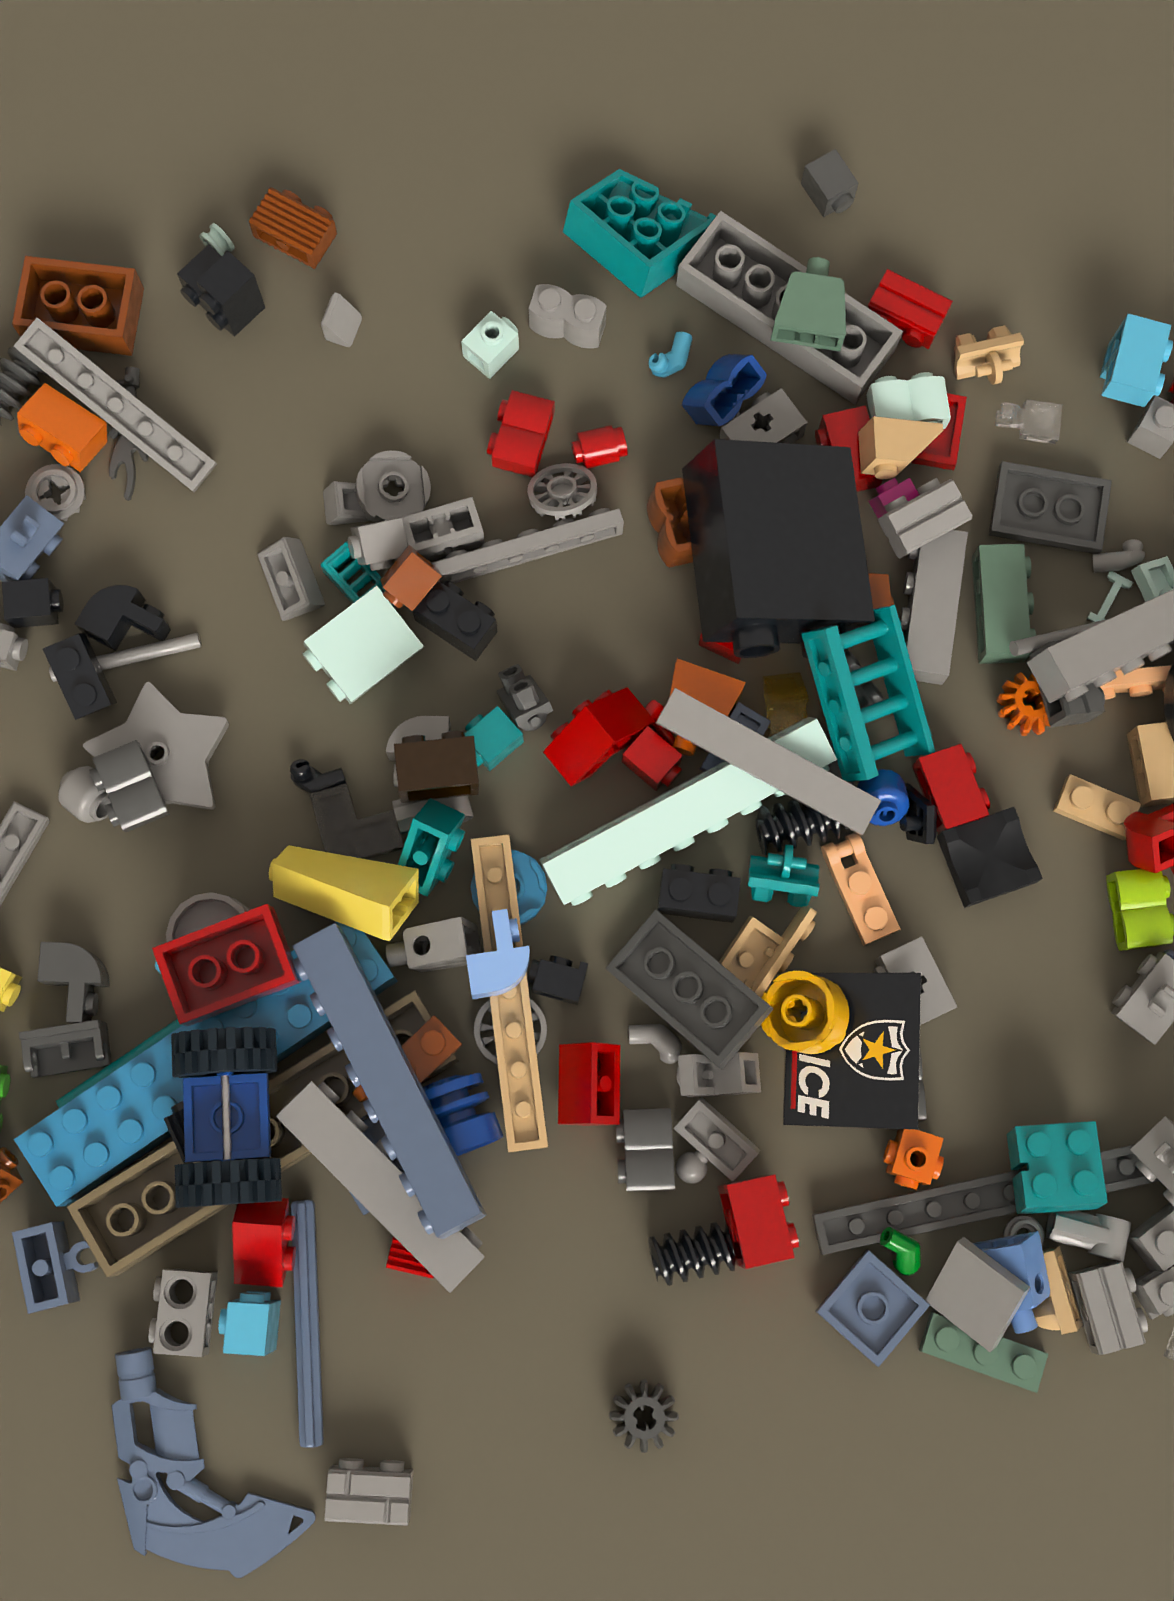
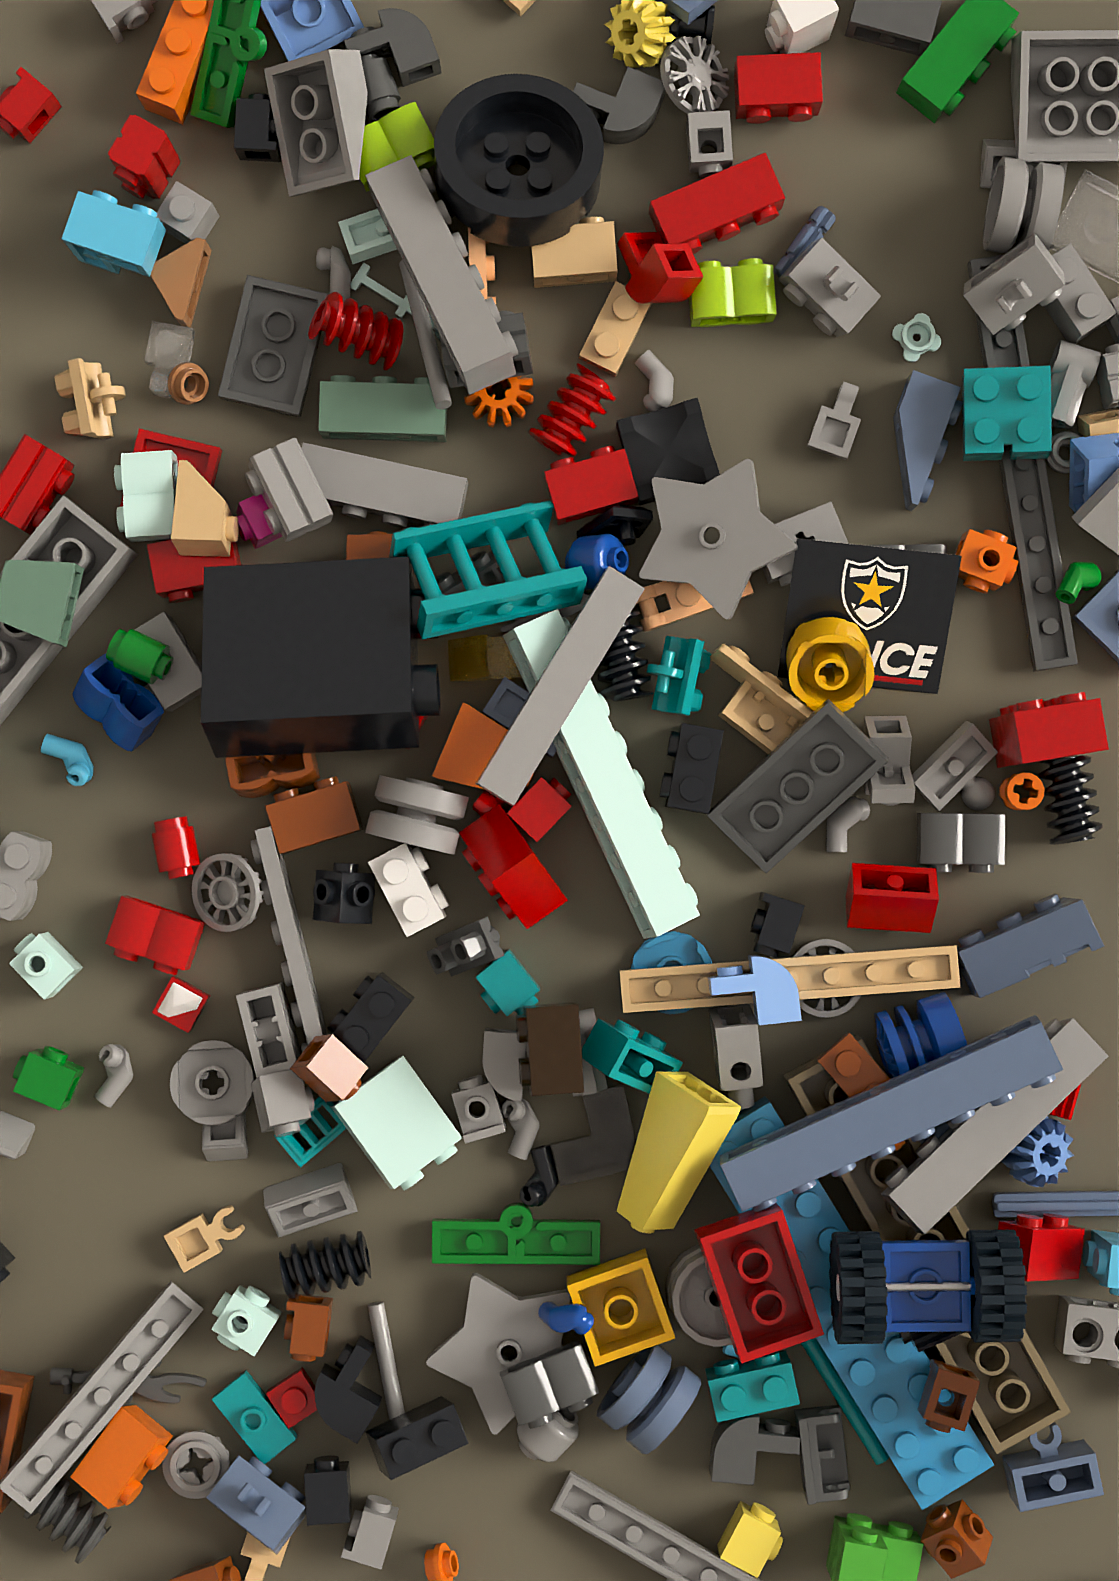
camera: 85 degrees left, 10 degrees up
(97, 541) = (254, 1417): none -> teal plate
(104, 1157) = (955, 1411): none -> reddish brown brick
(114, 570) = (293, 1397): none -> red plate
(118, 879) = (649, 1398): none -> sand blue wheel
(129, 977) = (751, 1386): none -> teal brick
(179, 580) = (308, 1326): none -> dark orange brick
(184, 524) = (242, 1333): none -> light aqua brick
(192, 802) = (566, 1317): none -> blue arm
(200, 851) = (624, 1307): none -> yellow brick
(230, 590) = (325, 1266): none -> black piece
(254, 484) = (198, 1239): none -> tan plate
(259, 759) = (516, 1240): none -> green hinge
(350, 1249) = (1040, 1154): none -> medium blue gear
(365, 761) = (524, 1124): none -> light grey arm
(372, 731) = (482, 1126): none -> light grey brick
(392, 351) = (47, 1077): none -> green brick
(399, 411) = (118, 1071): none -> light grey arm
(461, 460) = (181, 1004): none -> tile
(551, 1214) = (1026, 944): none -> sand blue wedge
(565, 590) = (344, 895): none -> black brick
(574, 646) = (408, 889): none -> white brick
(634, 563) = (313, 816): none -> dark orange brick
(642, 646) = (416, 814): none -> light grey wheel
(703, 1217) = (1031, 784): none -> orange bush
(767, 400) = (139, 655): none -> green brick
(913, 923) = (745, 540): none -> light grey plate
(1005, 445) = (197, 383): none -> medium nougat plate
(1017, 770) = (572, 412): none -> red piece
(1026, 1011) = (835, 427): none -> light grey plate
(1042, 1092) = (919, 427): none -> sand blue slope
(1053, 849) = (660, 382): none -> light grey arm
(1073, 574) = (359, 328): none -> red piece
(1101, 426) = (181, 278): none -> medium nougat slope
(1129, 1090) = (928, 338): none -> light aqua plate

